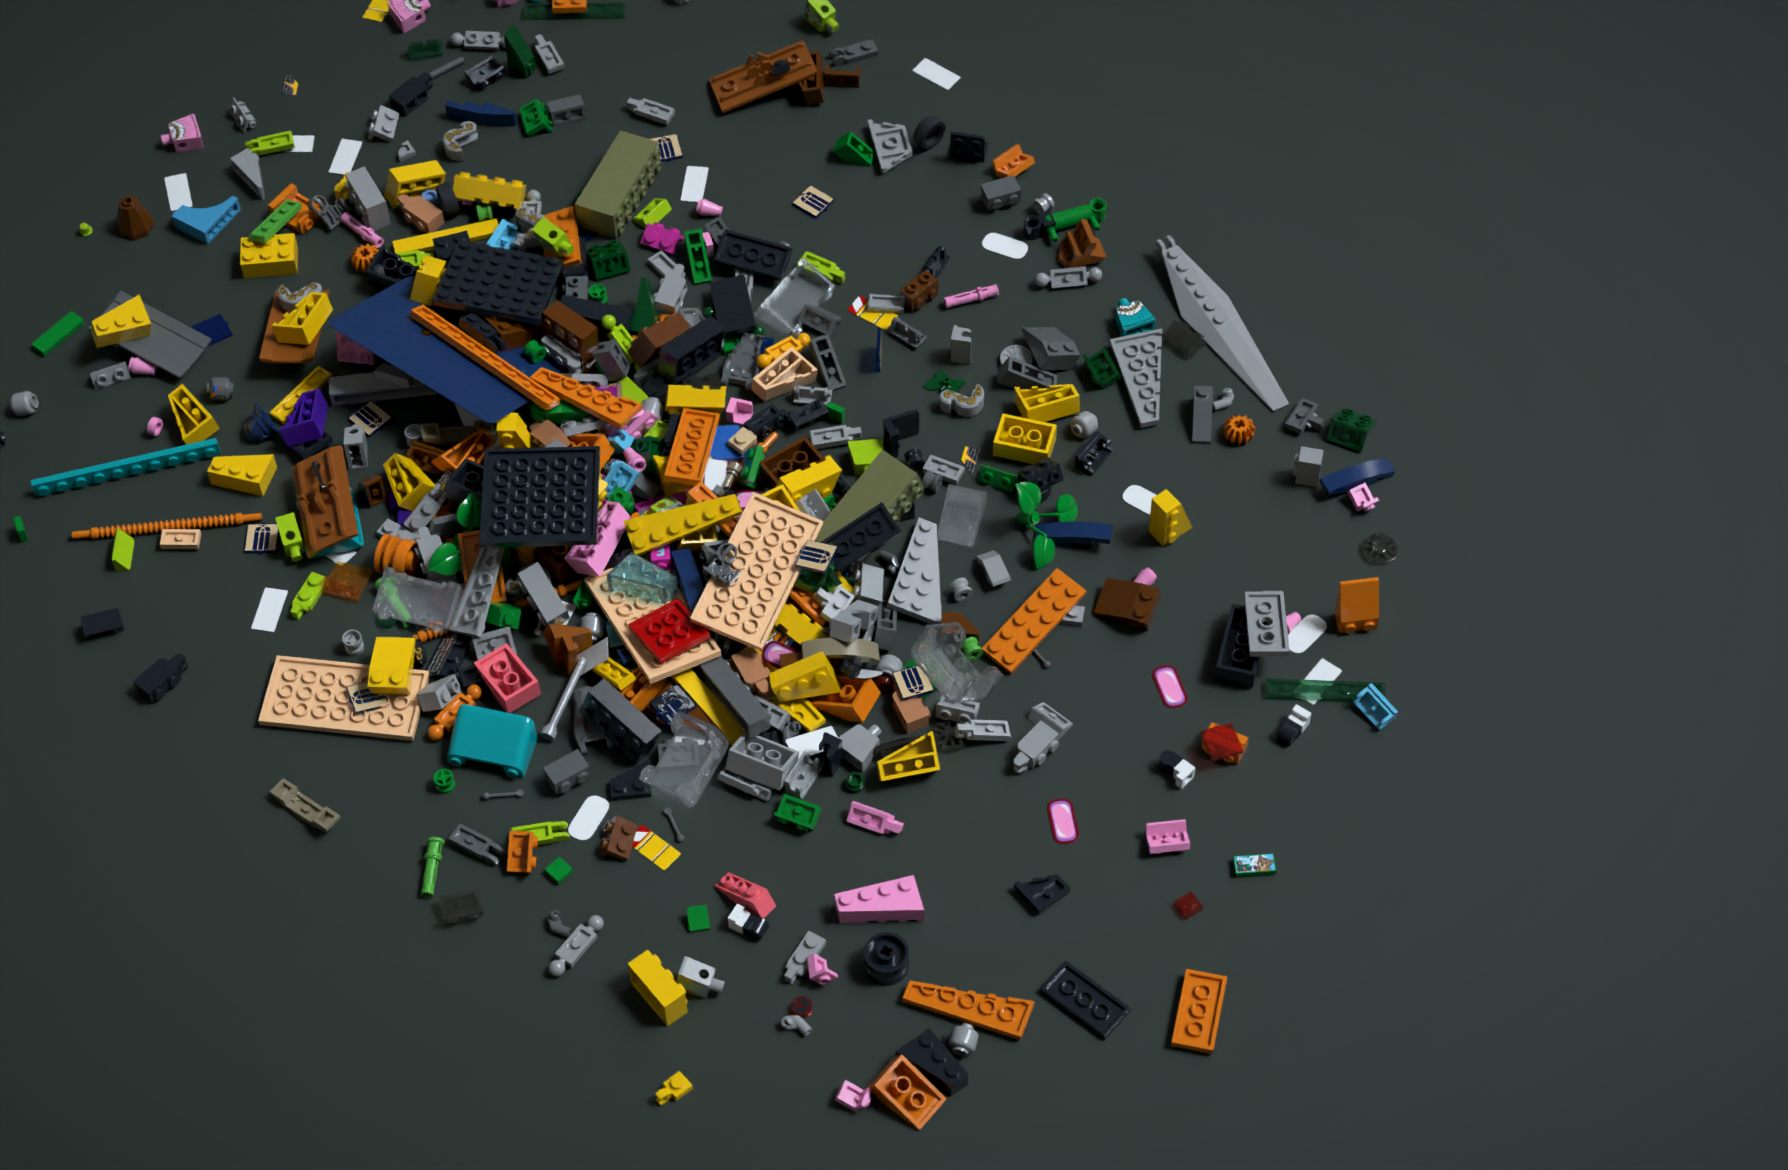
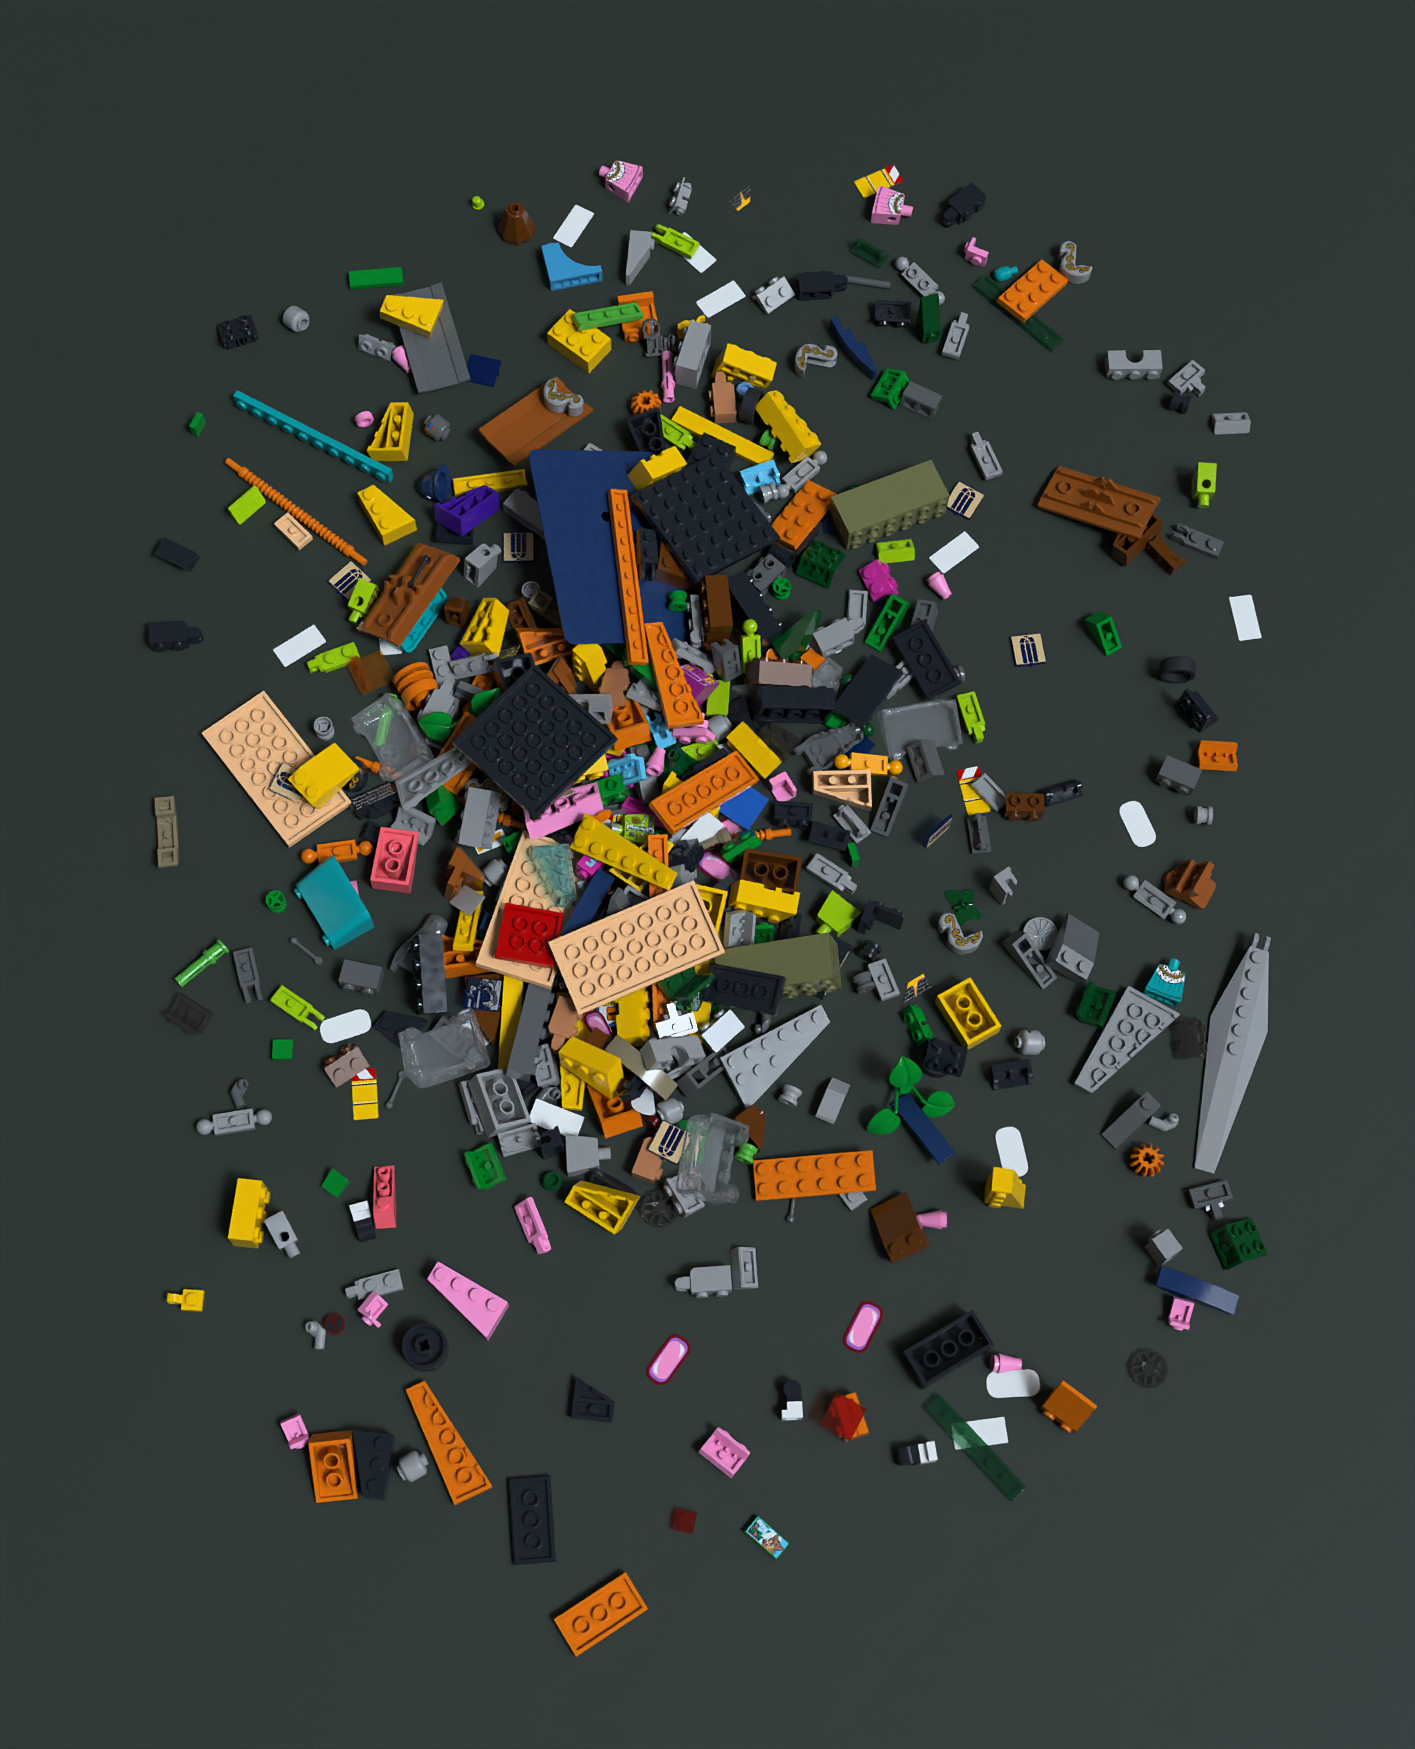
camera: 40 degrees right, 15 degrees up
(304, 321) = (541, 425): yellow wedge -> none
(406, 151) = (767, 333): light grey tile -> none
(439, 693) = (338, 827): light grey slope -> none
(521, 851) = (267, 1011): orange bracket -> none
(528, 219) = (793, 490): light grey animal -> none
(550, 731) = (385, 930): light grey piece -> none
(552, 238) = (787, 512): lime torso -> none
(708, 244) = (906, 618): bright pink tile -> none
(723, 569) = (605, 922): dark grey piece -> none
(742, 440) = (758, 816): tan bracket -> none
(780, 67) = (1112, 509): black plate -> none
(816, 556) = (688, 978): piece -> none
(890, 144) = (1139, 651): light grey wing -> none
(961, 515) = (855, 1032): clear slope -> none
(967, 297) = (1061, 846): bright pink pin -> none
(984, 730) = (684, 1231): light grey hinge -> none
(1047, 403) = (1018, 997): yellow wedge -> none
(1049, 223) = (1191, 837): green piece -> none
(1266, 607) = (989, 1337): light grey hinge -> none
(1375, 707) = (994, 1501): medium azure hinge -> none

